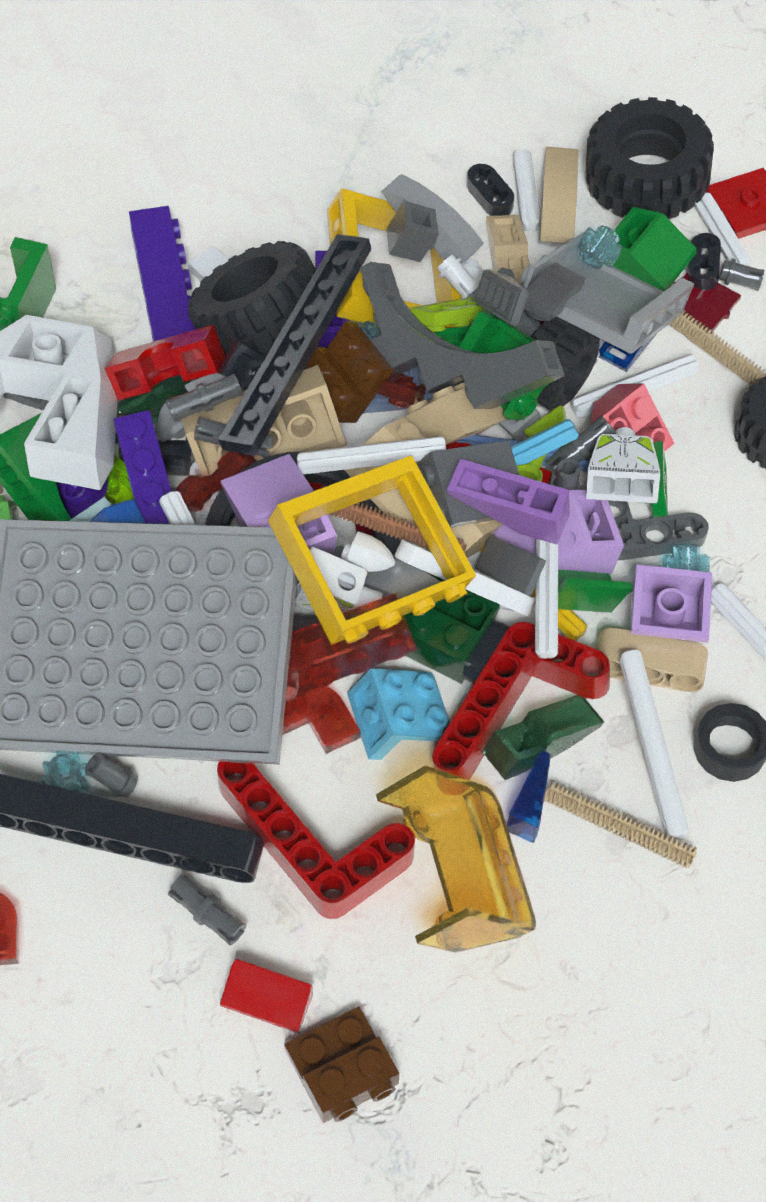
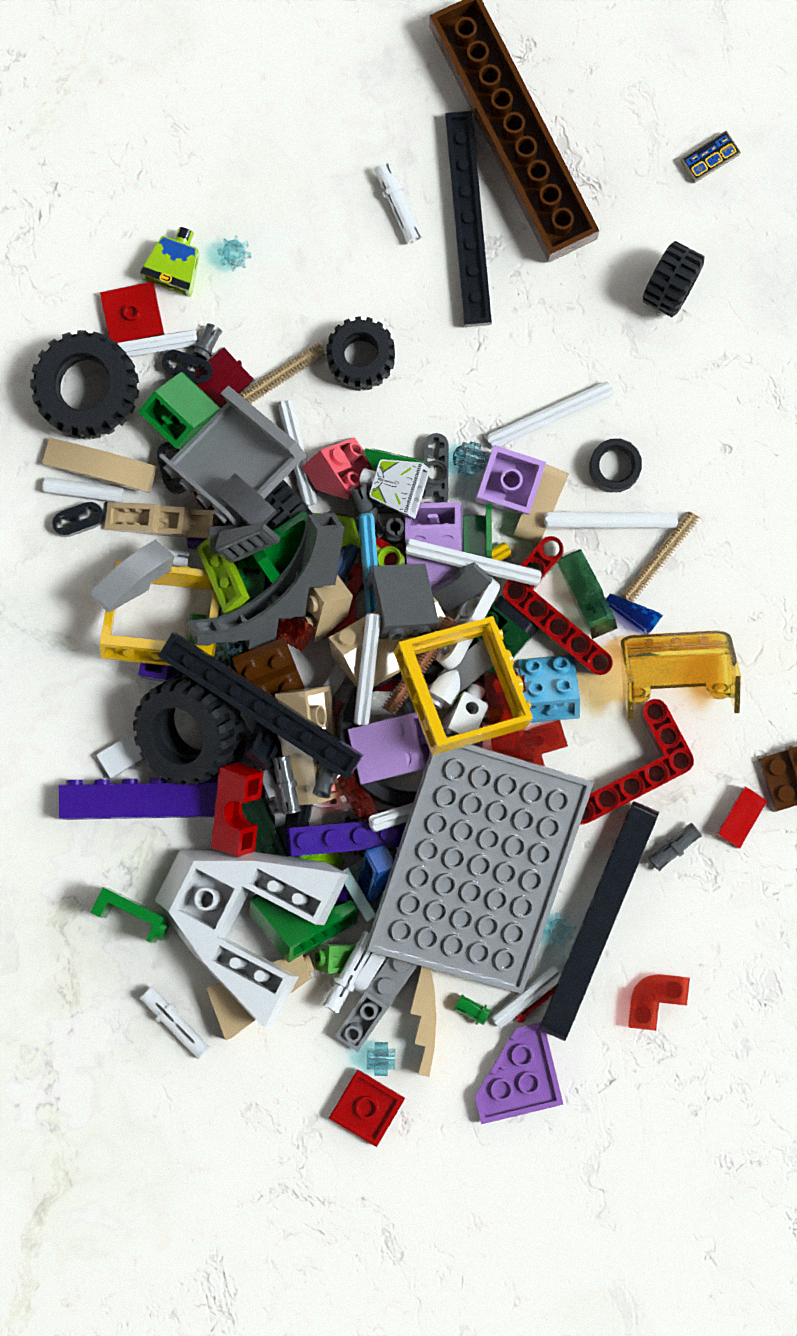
camera: 75 degrees left, 25 degrees up
(119, 780) = (568, 893): dark grey pin -> none
(412, 231) = (153, 595): dark grey brick -> none
(458, 276) = (181, 569): white pin -> none
(513, 500) = (428, 578): medium lavender slope -> none
(599, 246) = (184, 450): clear light blue gear -> none

